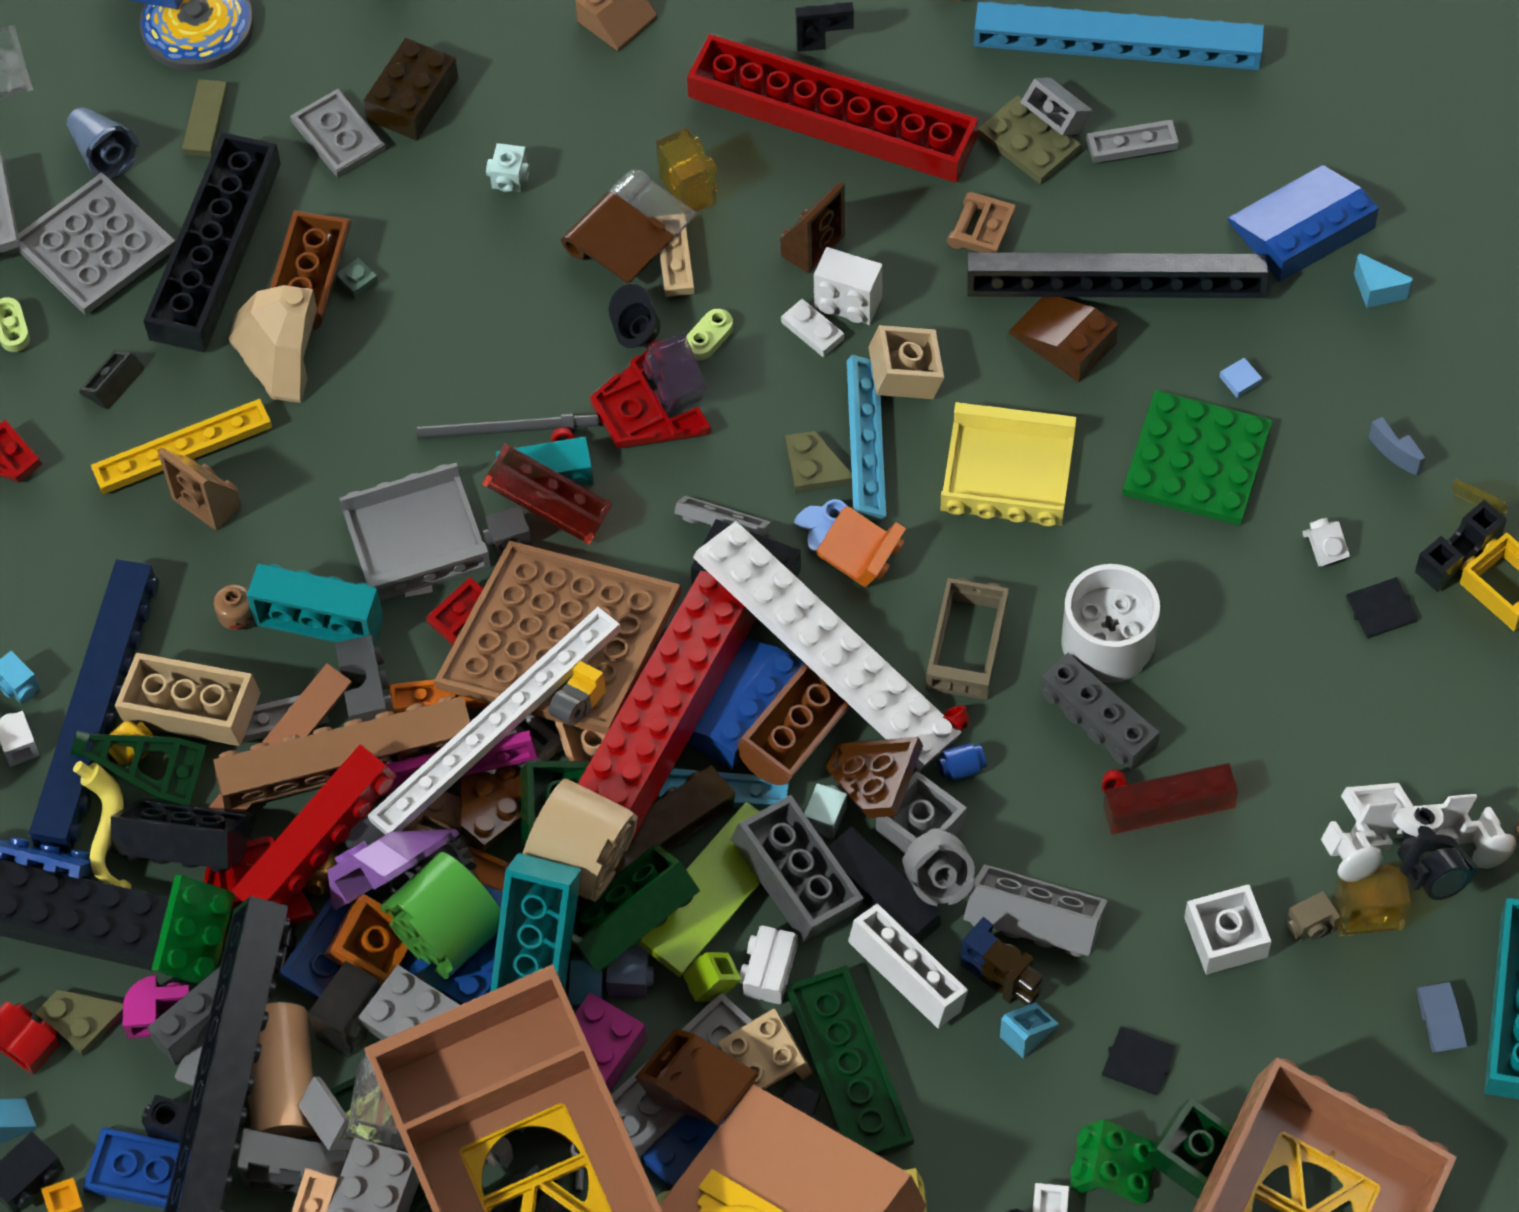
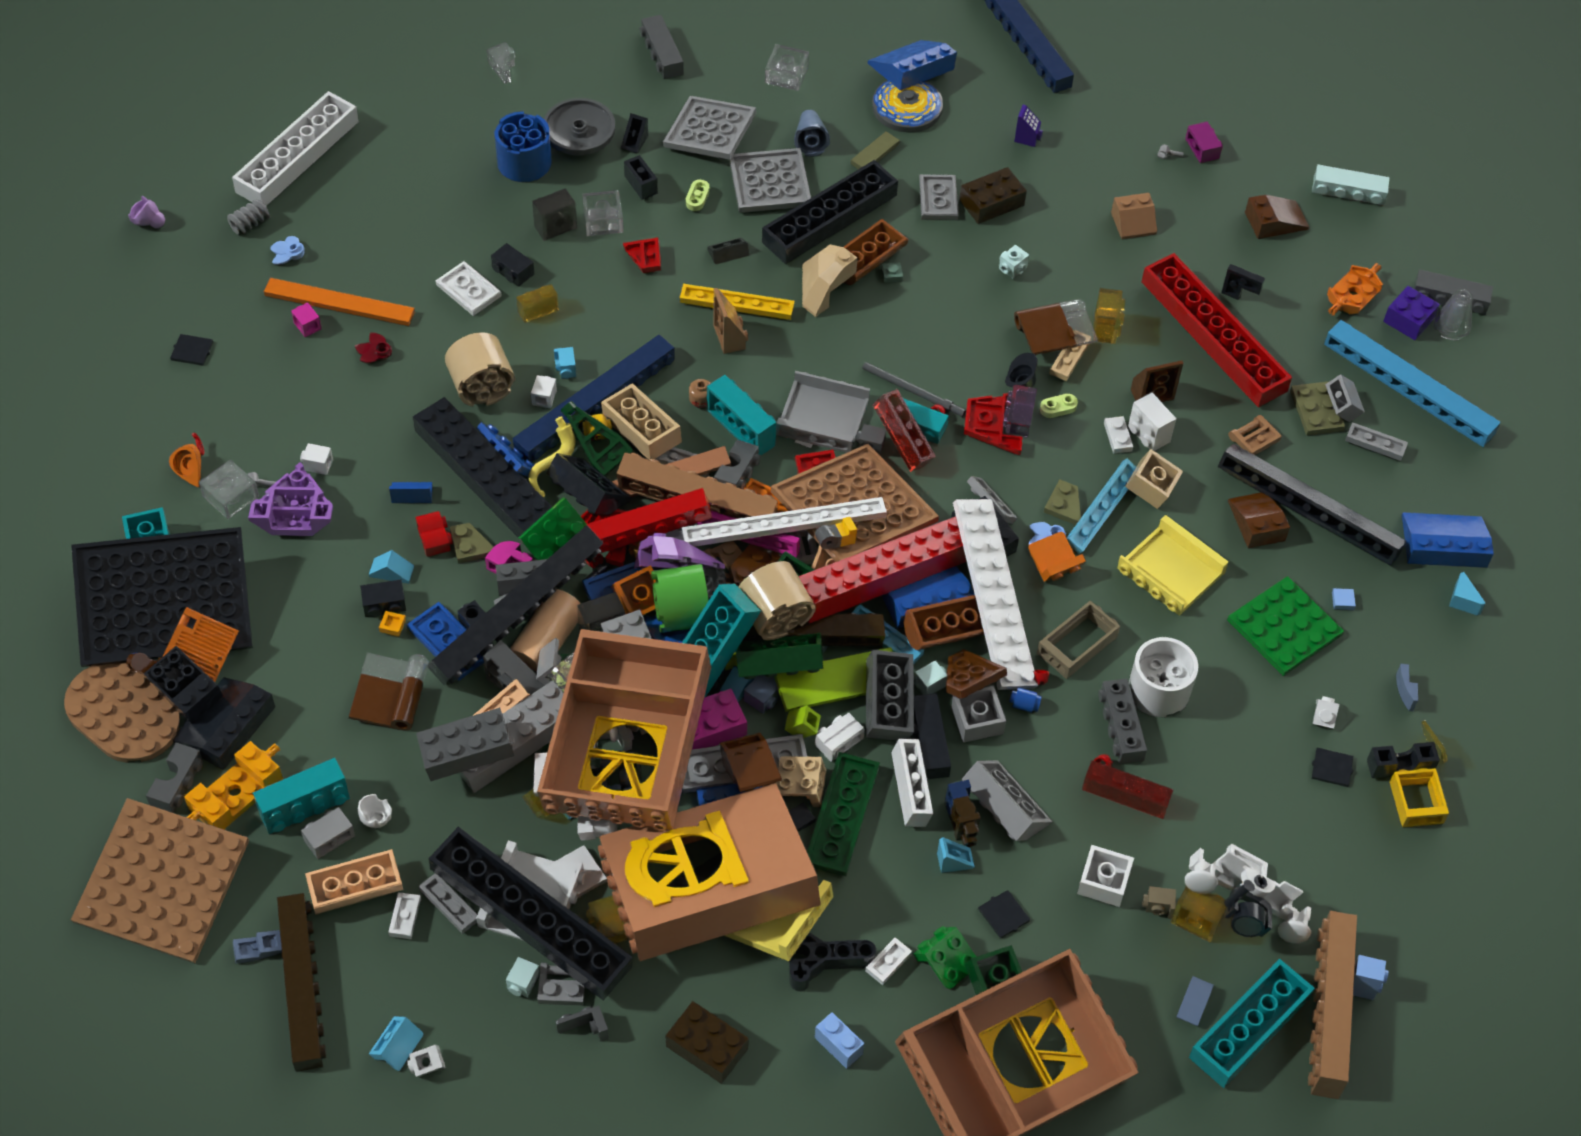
camera: 30 degrees right, 5 degrees down
(939, 868) = (960, 751): light grey brick -> none

